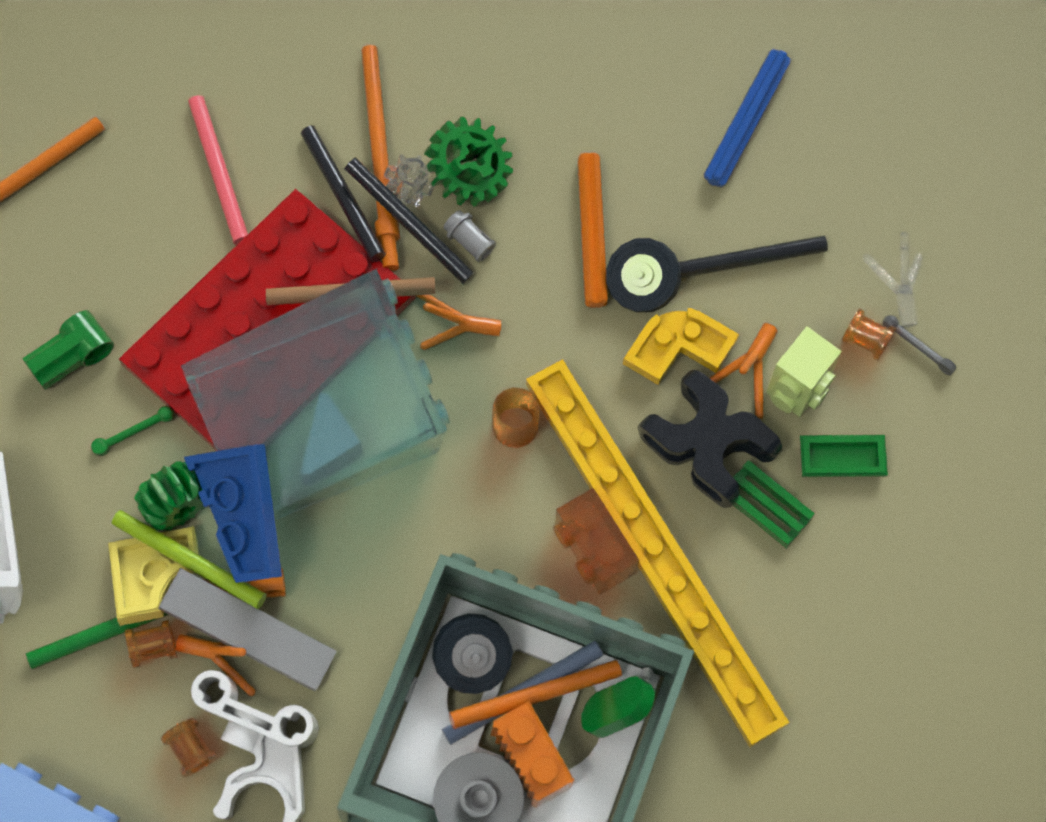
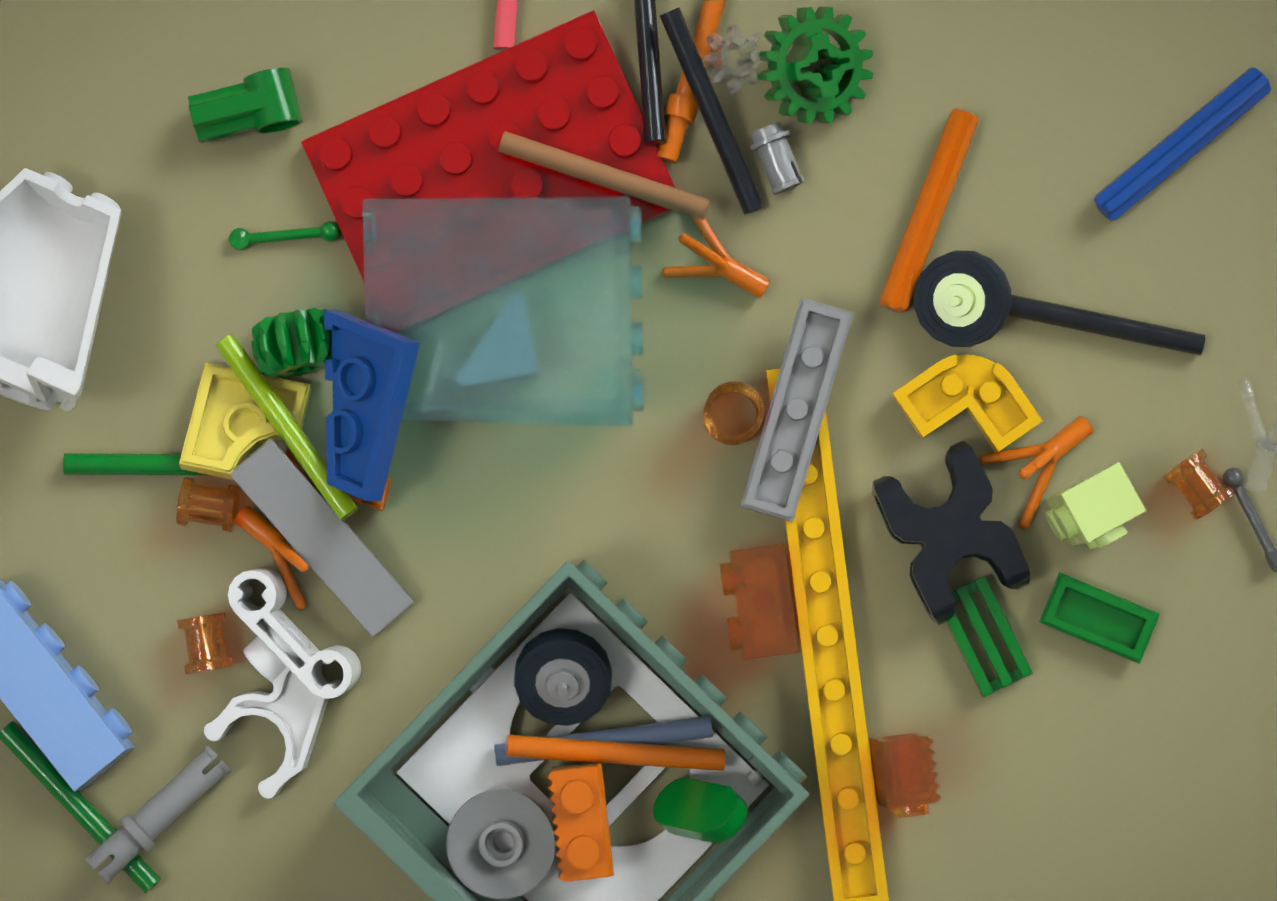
camera: 25 degrees right, 15 degrees up
(560, 396) = (796, 410): none -> light grey tile
(756, 615) = (904, 773): none -> clear orange brick

